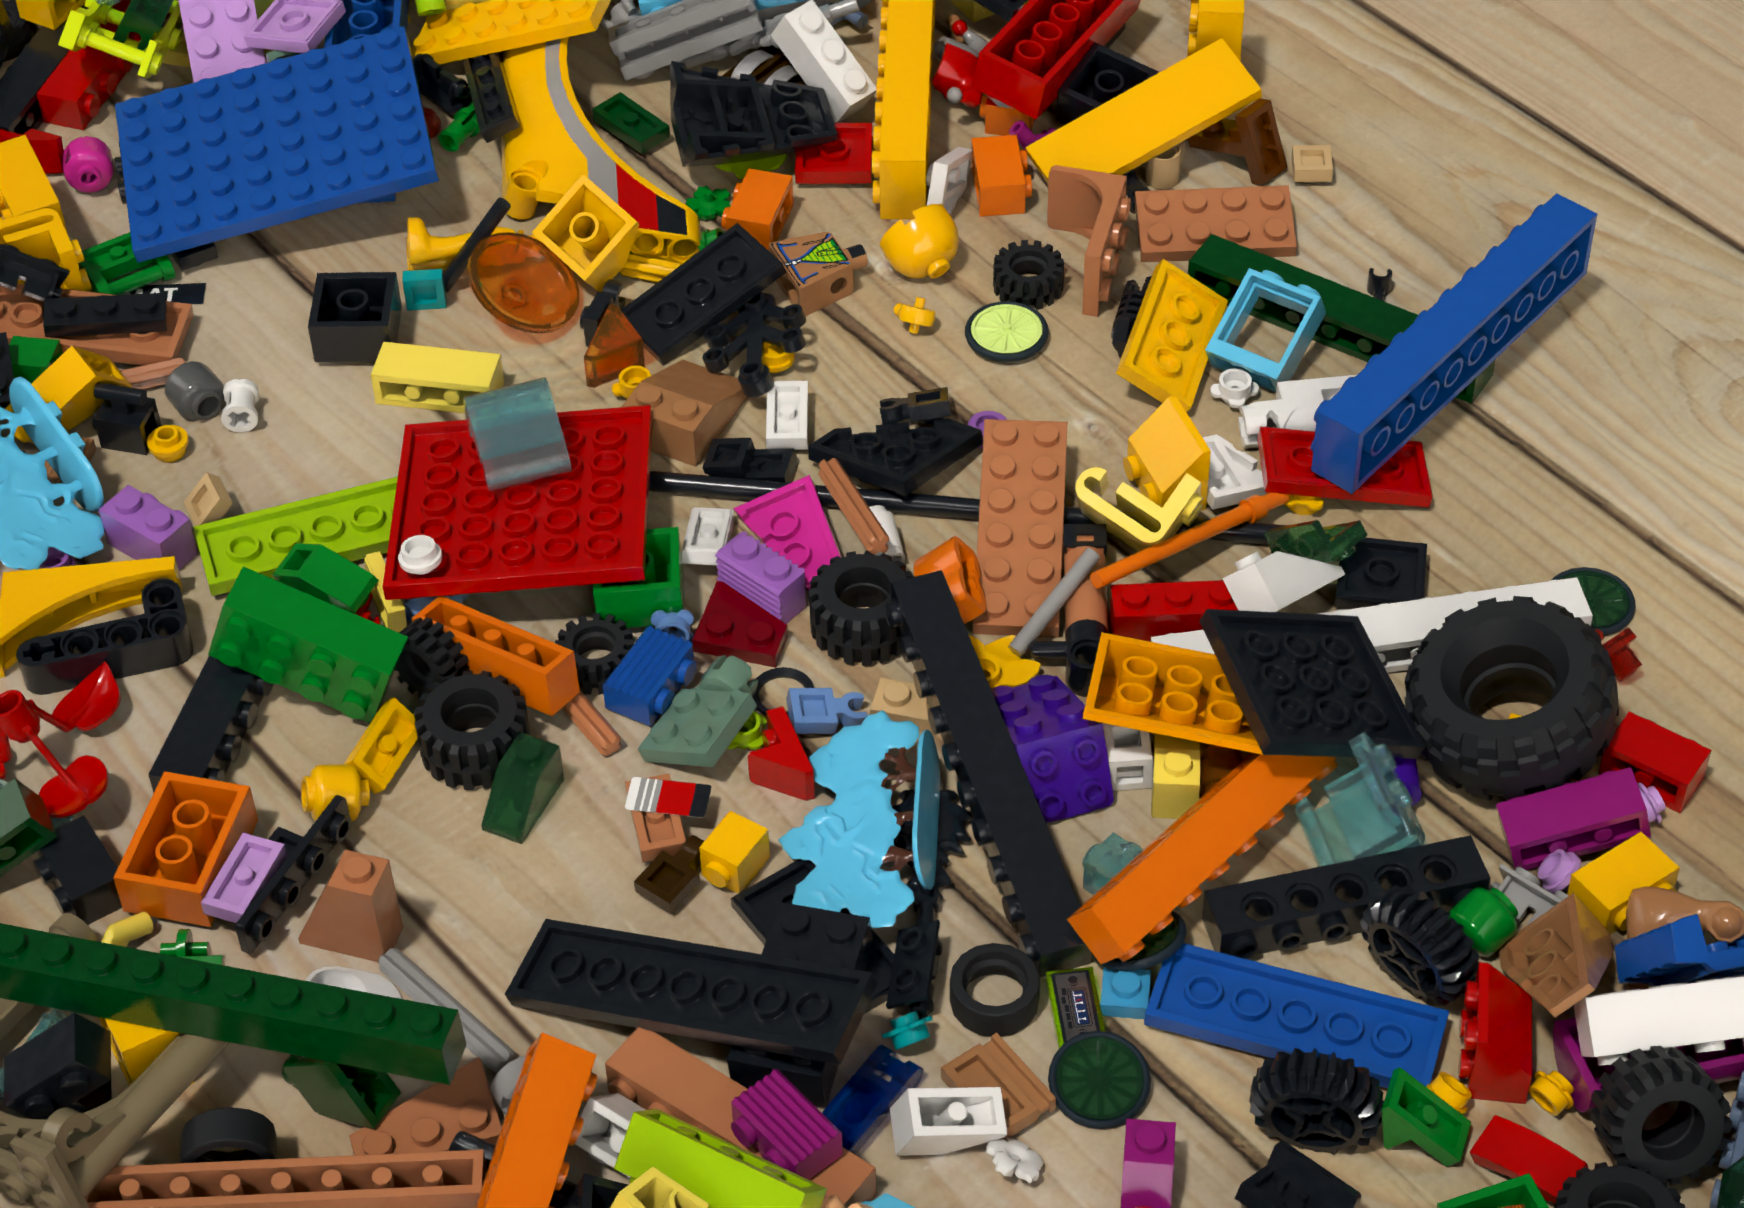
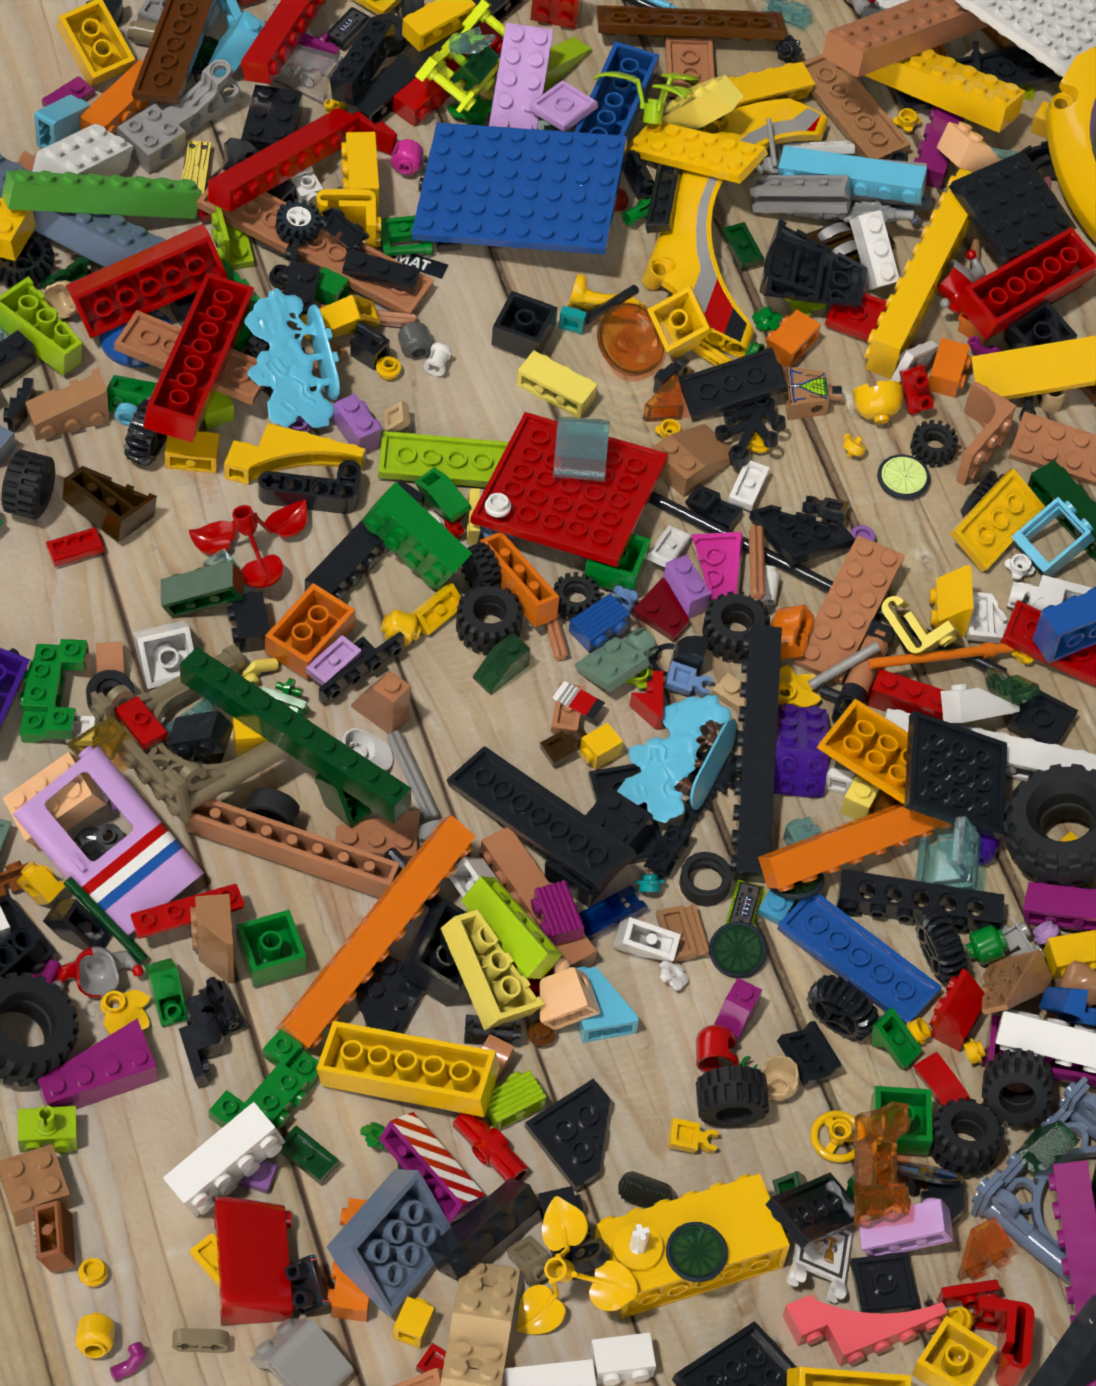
camera: 15 degrees right, 10 degrees up
(166, 78) = (476, 115): none -> green plate
(811, 665) = (690, 651): none -> black brick
(966, 206) = (916, 389): none -> red hips

